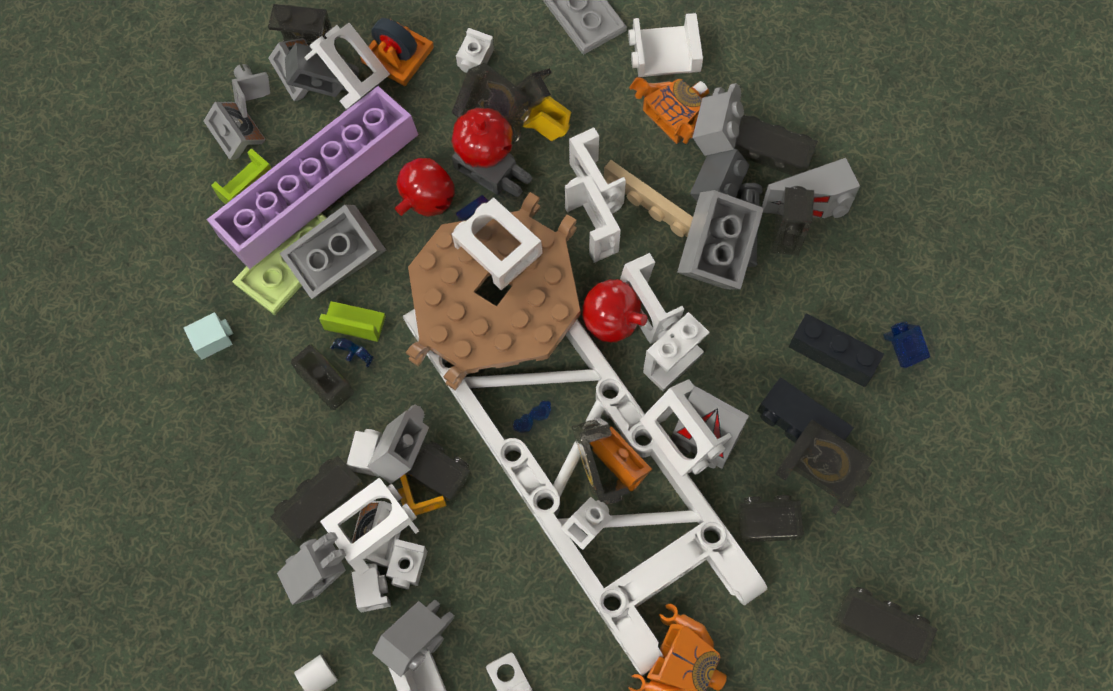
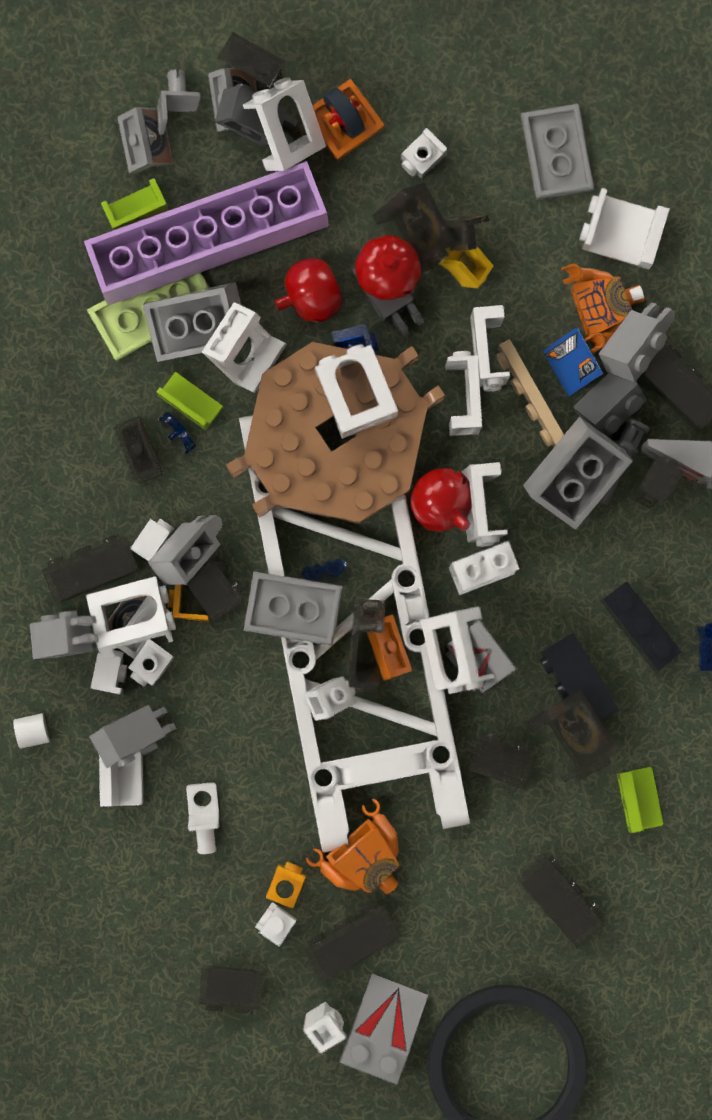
camera: 15 degrees right, 15 degrees up
(209, 335) = (45, 360): light aqua brick -> none
(364, 247) = (230, 337): none -> white panel
(518, 456) = (293, 608): none -> light grey tile
(672, 158) = (572, 362): none -> blue sticker
(908, 504) = (640, 799): none -> lime panel

